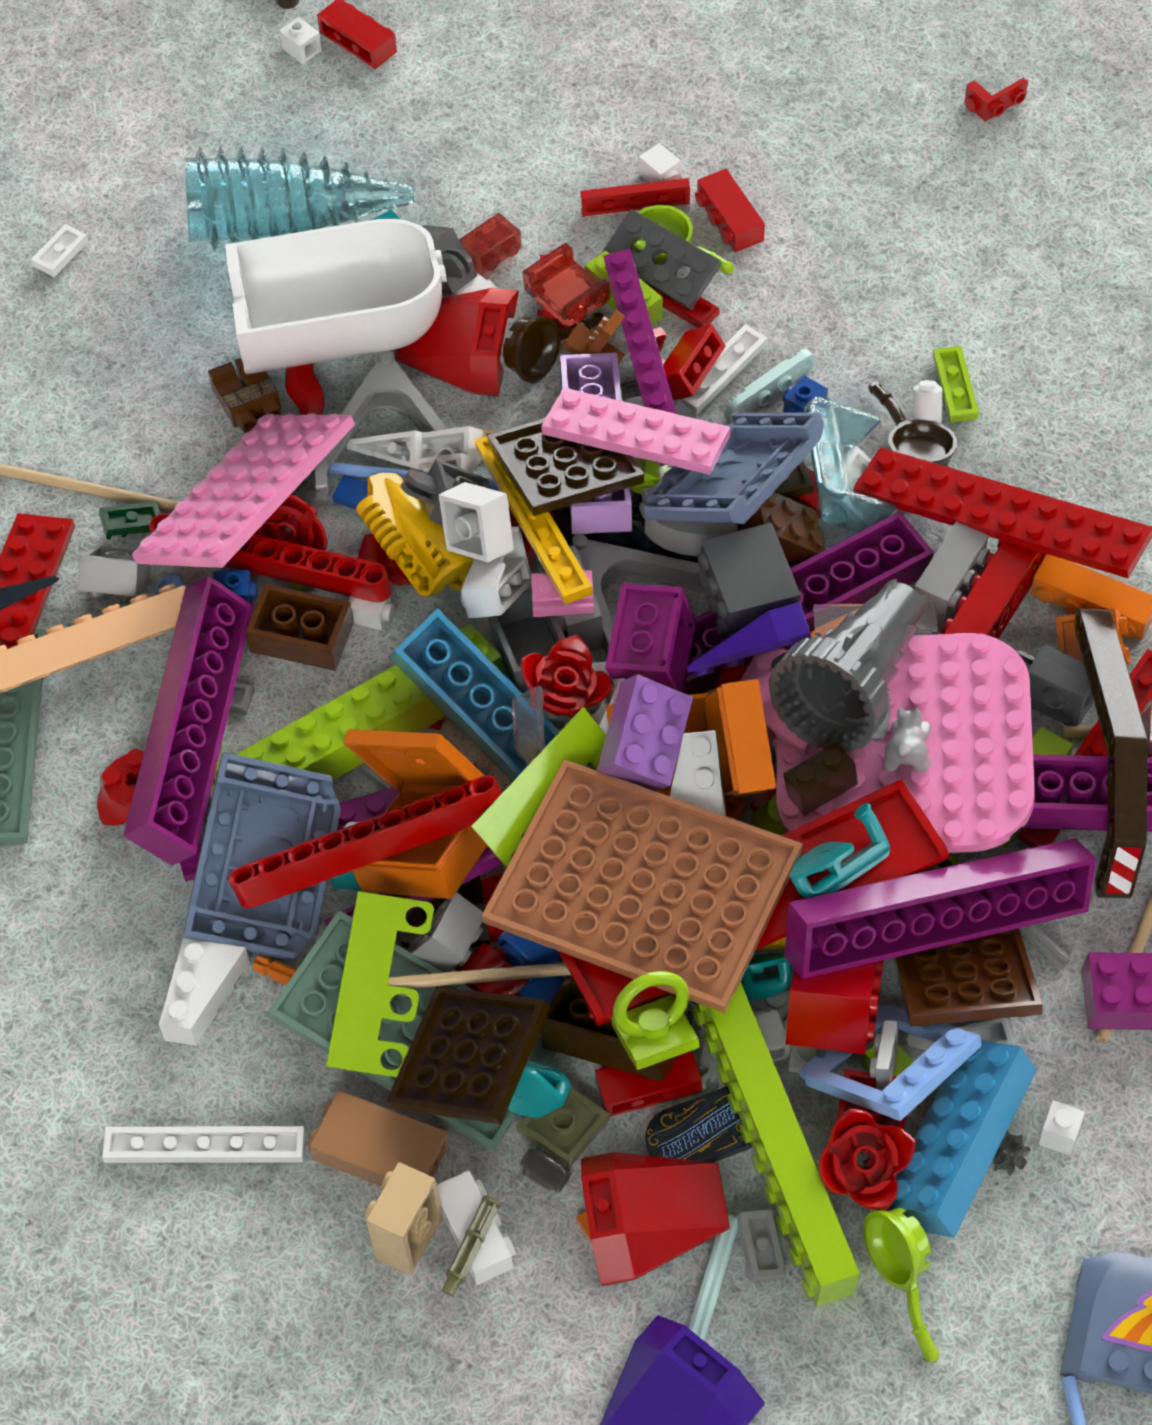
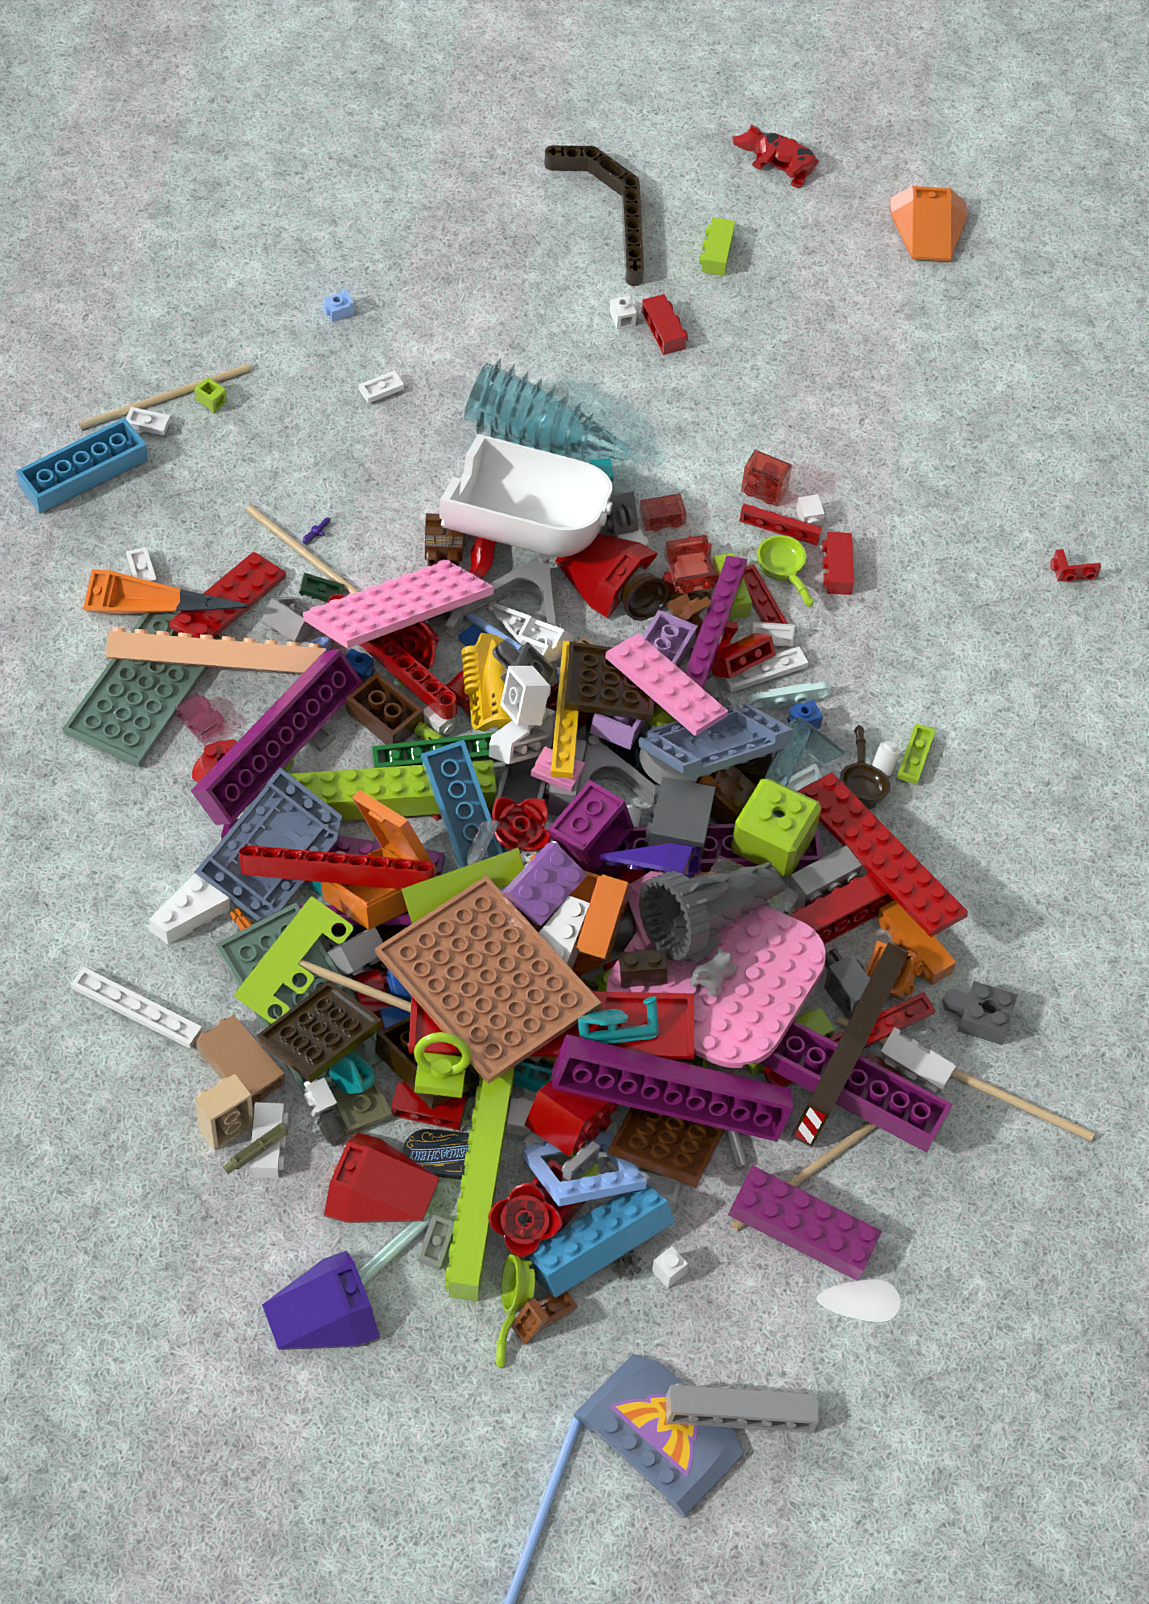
camera: 20 degrees right, 0 degrees up
(70, 744) = (199, 717): none -> clear pink brick
(81, 454) = (316, 531): none -> dark purple piece
(367, 631) = (425, 732): none -> lime pin
(374, 655) = (409, 752): none -> green brick
(508, 1139) = (319, 1096): none -> white brick
(588, 150) = (766, 478): none -> clear red brick
(680, 254) = (781, 577): dark grey plate -> none
(717, 315) = (781, 633): none -> white tile
(865, 536) = (772, 839): none -> lime plate
(948, 1270) = (541, 1314): none -> dark orange bracket

